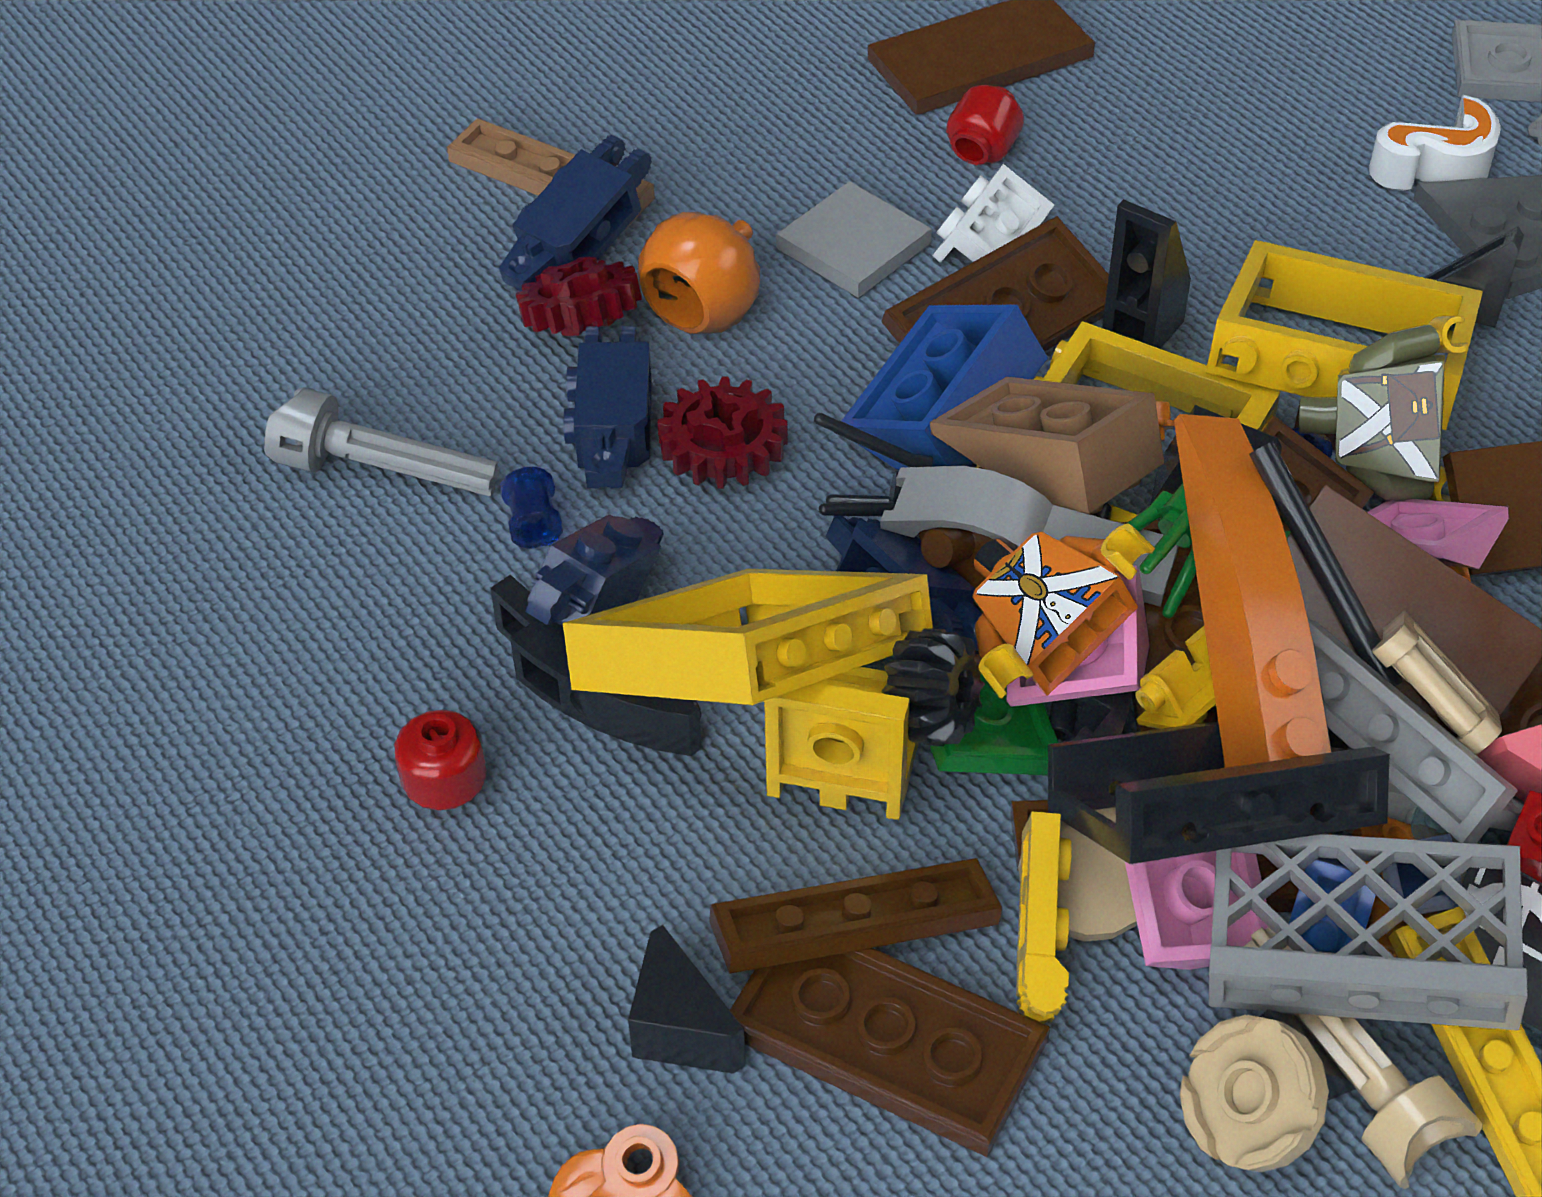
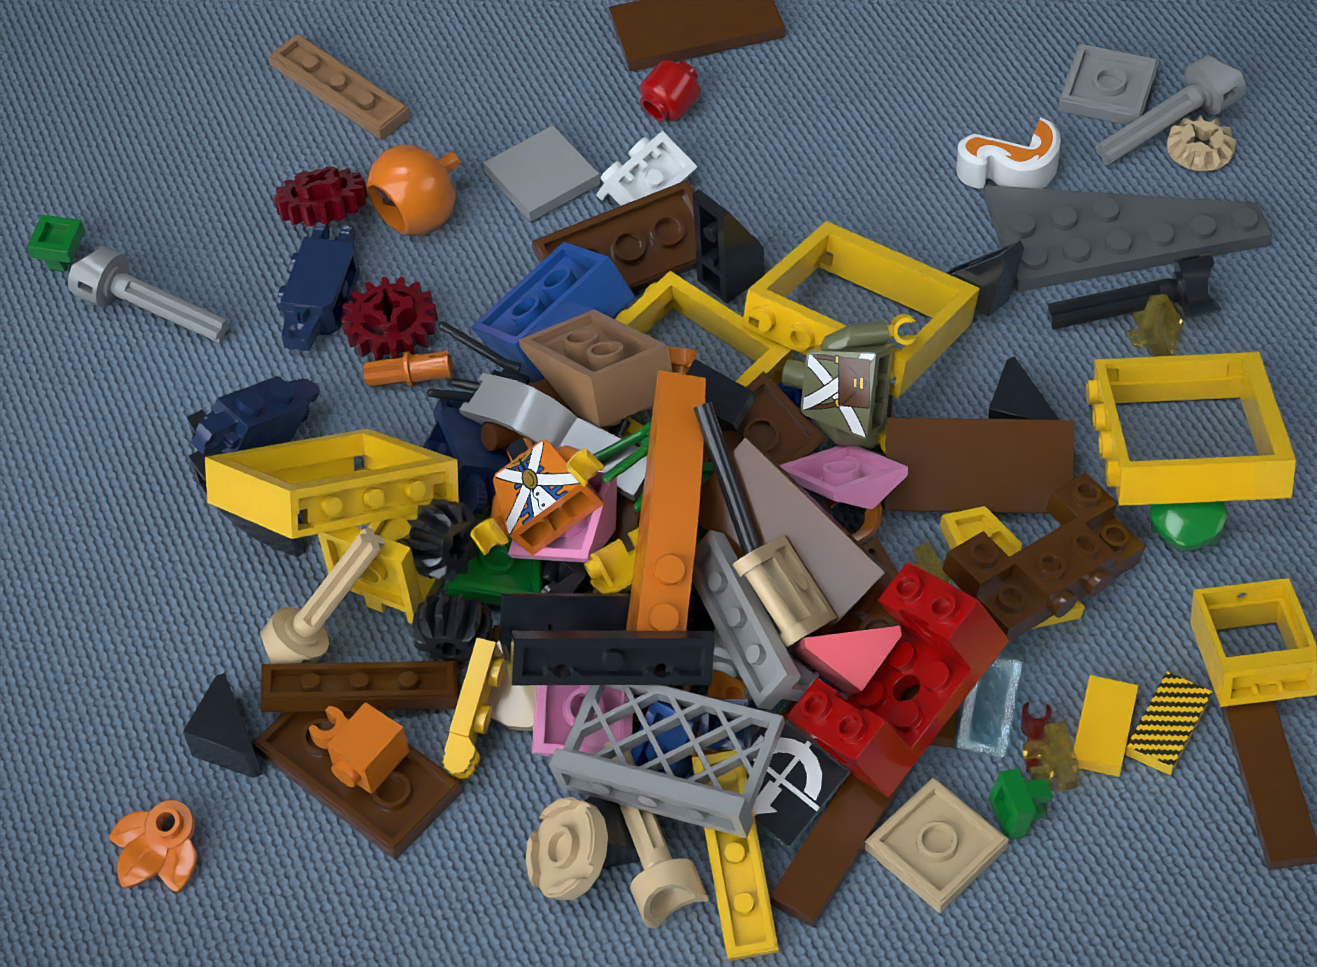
camera: 15 degrees right, 5 degrees up
(228, 396) = (56, 241): none -> green tile
(440, 759) = (121, 534): red head -> none
(533, 518) = (240, 357): clear blue bush -> none
(577, 211) = (341, 126): dark blue hinge -> none
(746, 857) = (299, 634): none -> tan piece
(769, 490) = (409, 369): none -> orange axle
(900, 998) = (363, 747): none -> orange brick
(967, 811) = (450, 625): none -> black gear

